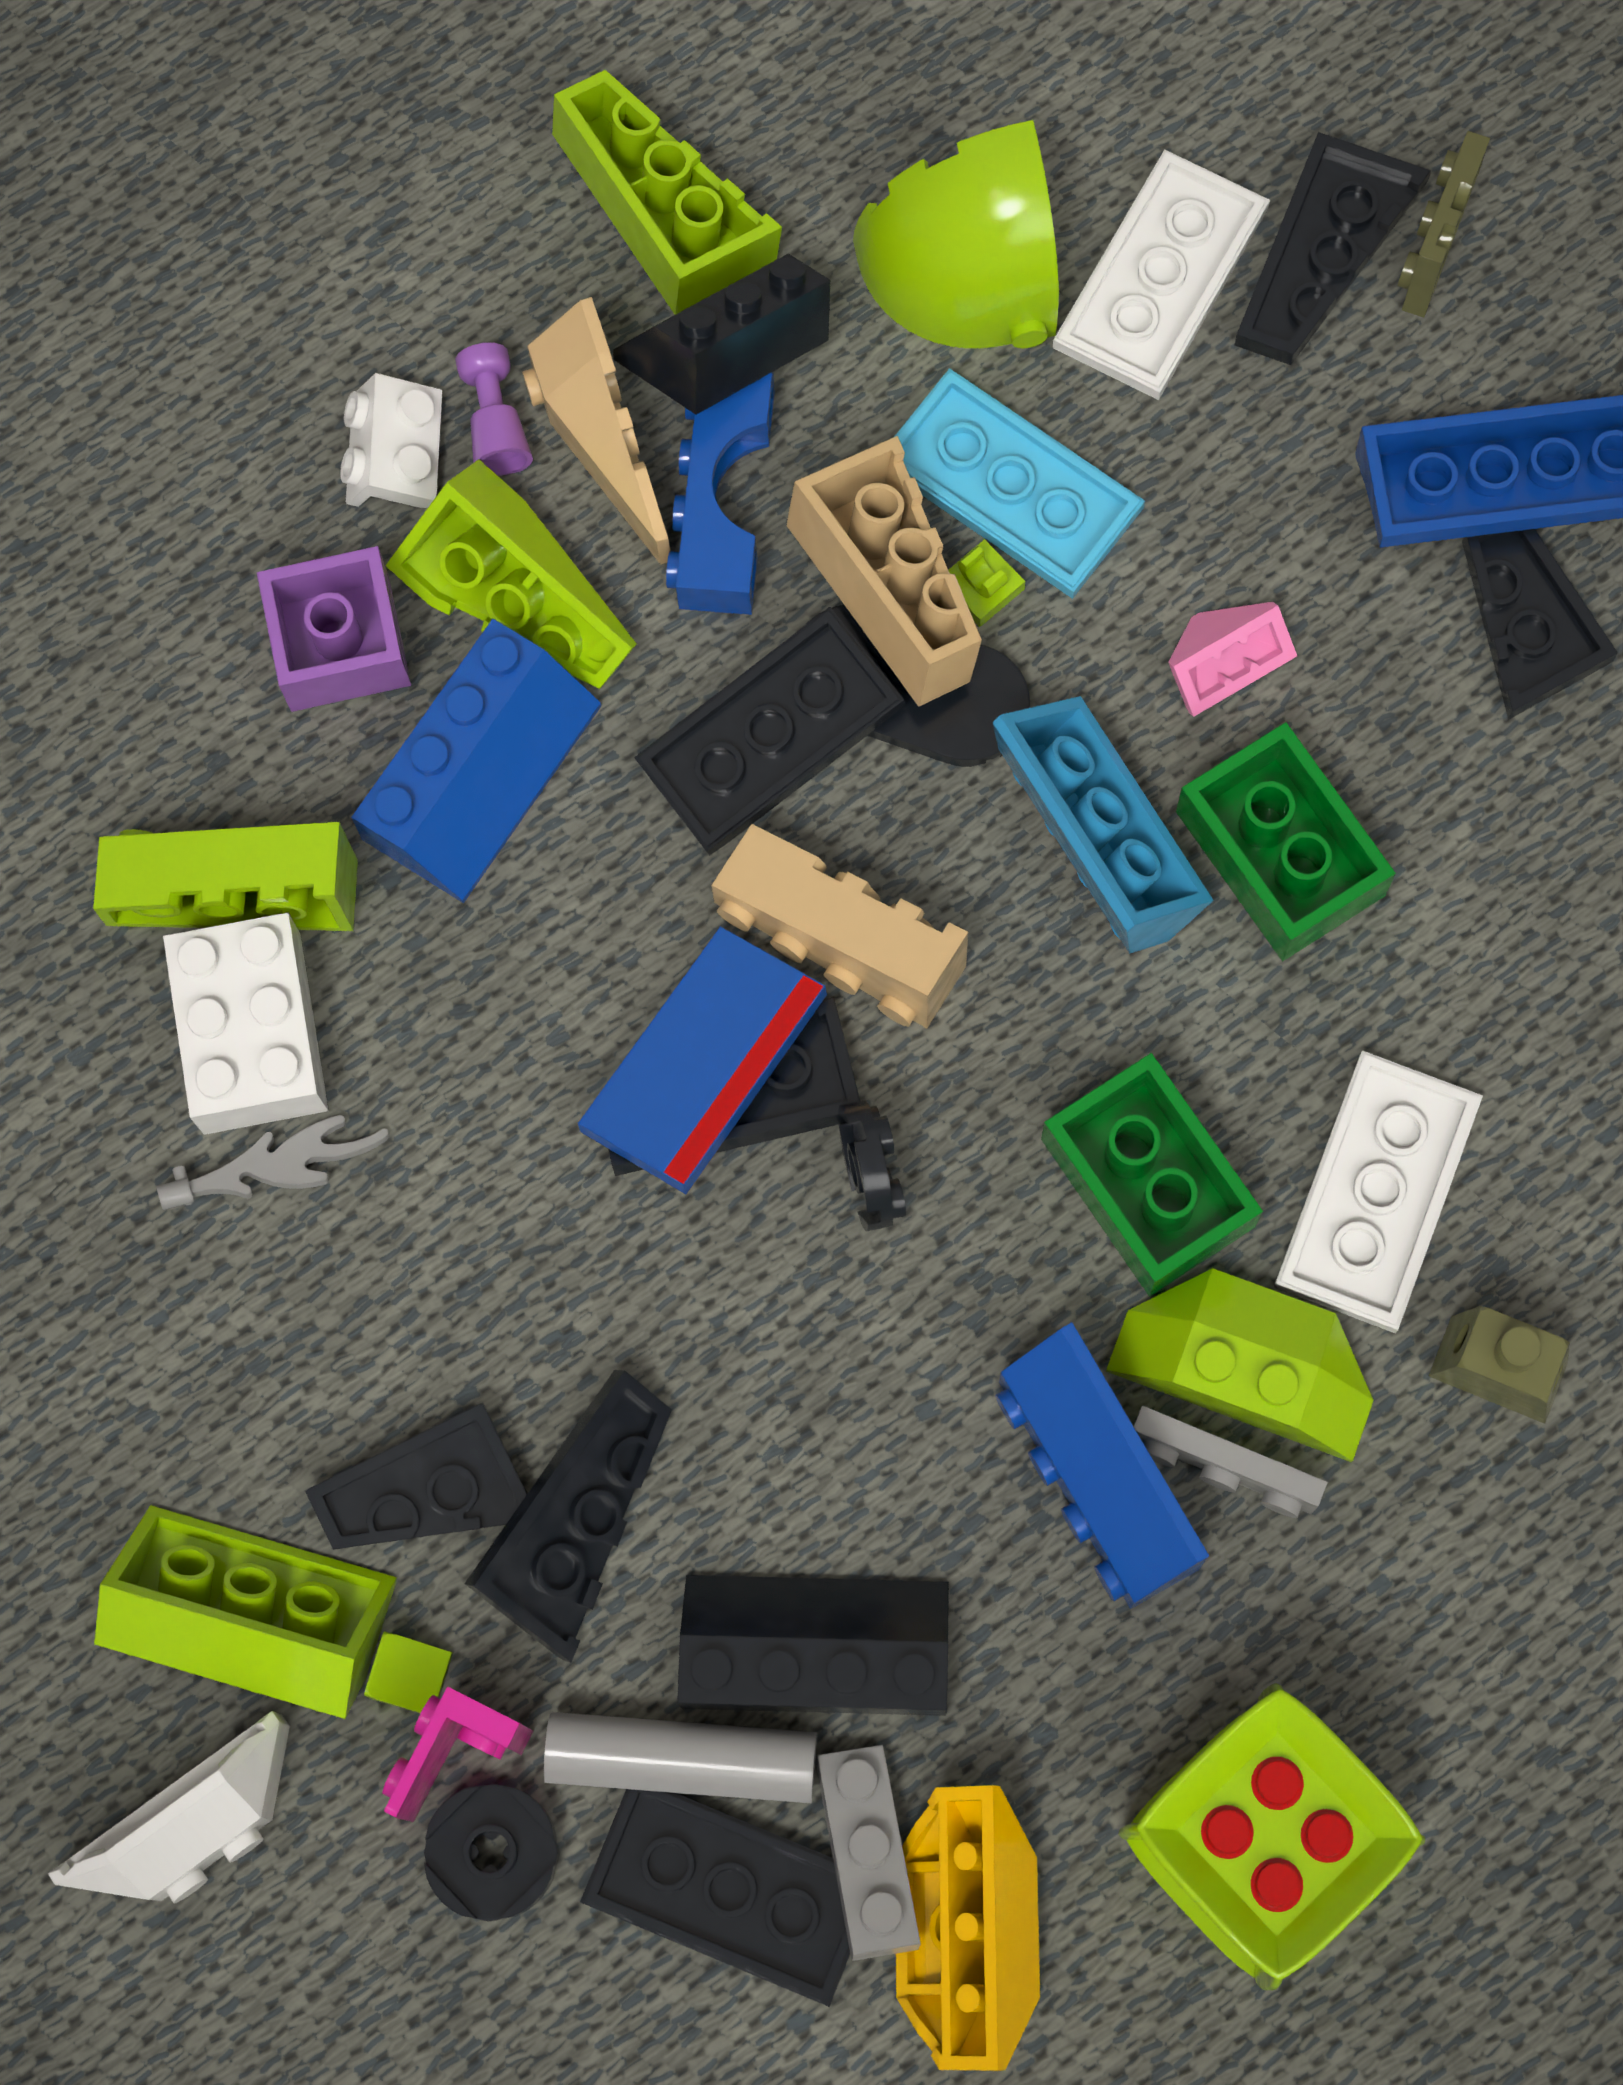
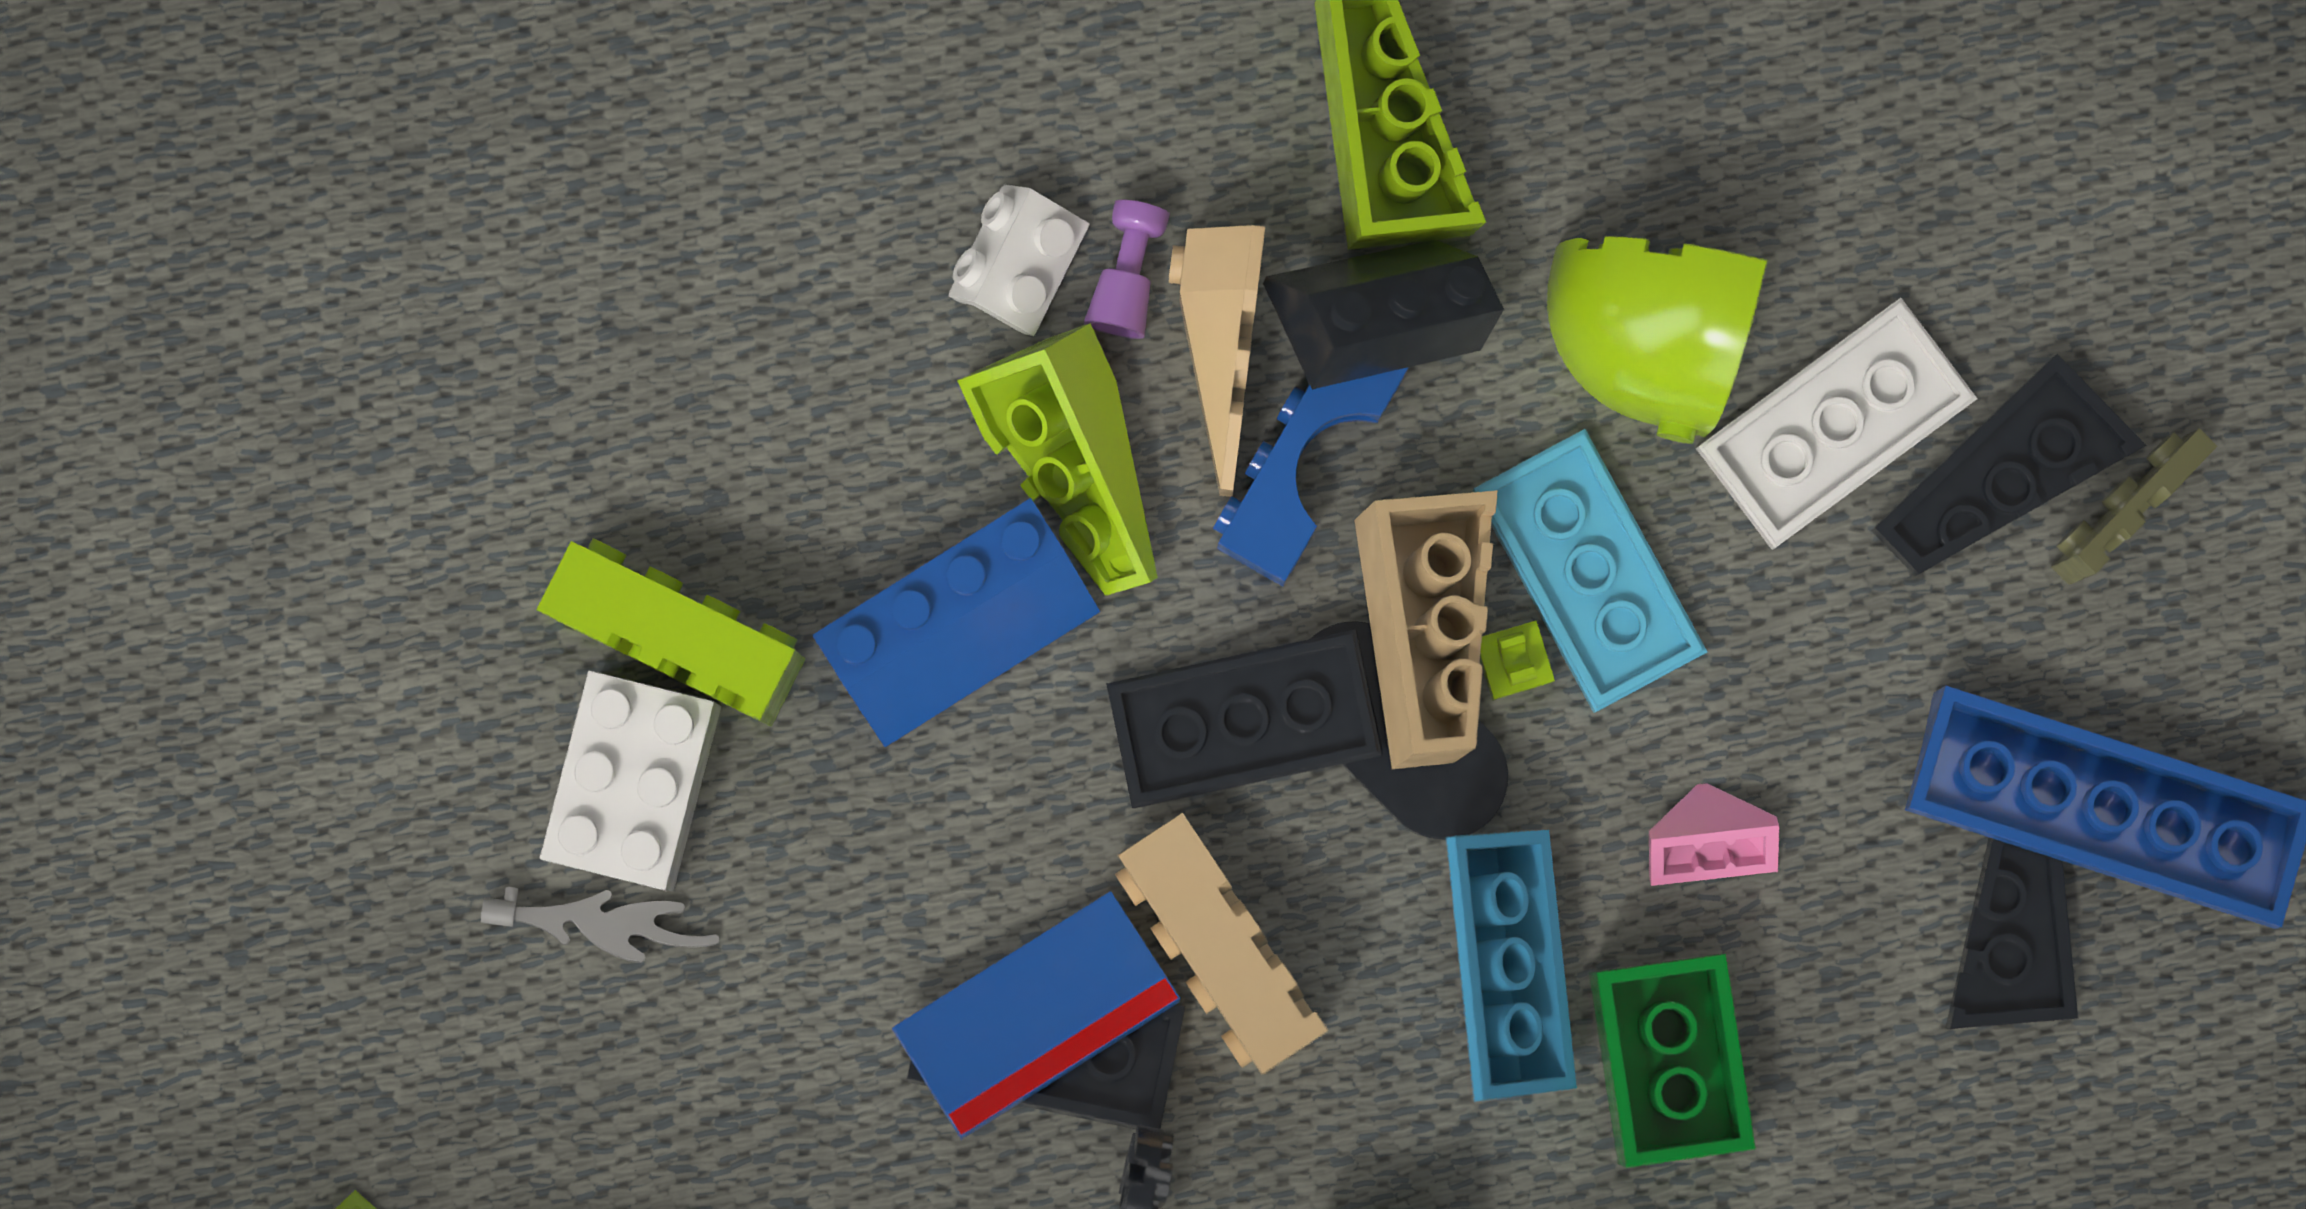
camera: 20 degrees right, 10 degrees up
(333, 629) = (878, 430): medium lavender brick -> none

